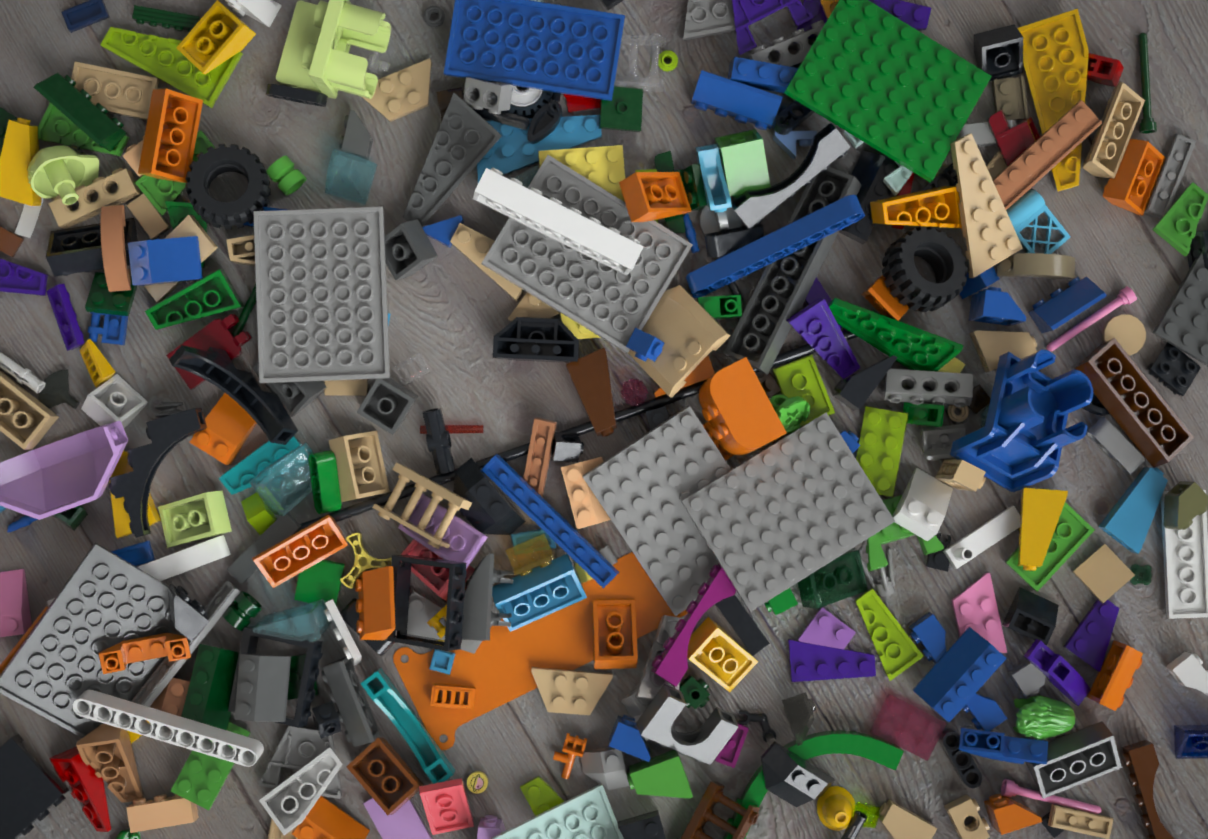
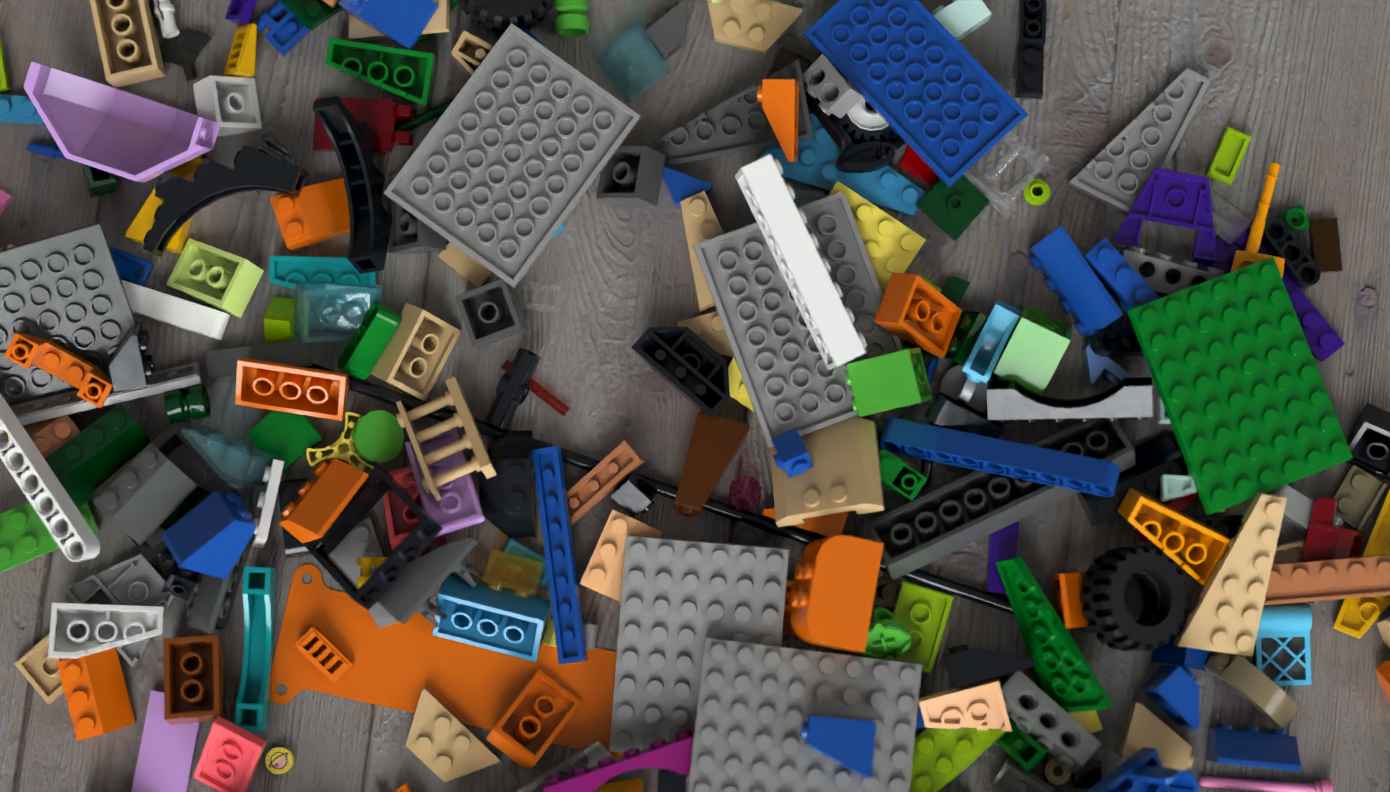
camera: 50 degrees right, 5 degrees down
(325, 680) = (211, 535): none -> blue slope
(378, 537) = (378, 436): none -> bright green tile
(442, 661) = (342, 610): dark azure tile -> none
(469, 133) = (781, 107): none -> orange slope
(670, 253) = (888, 381): none -> bright green slope
(816, 498) = (842, 741): none -> blue slope
(824, 335) = (980, 583): dark purple wing -> none
(877, 413) = (971, 706): none -> light nougat wing

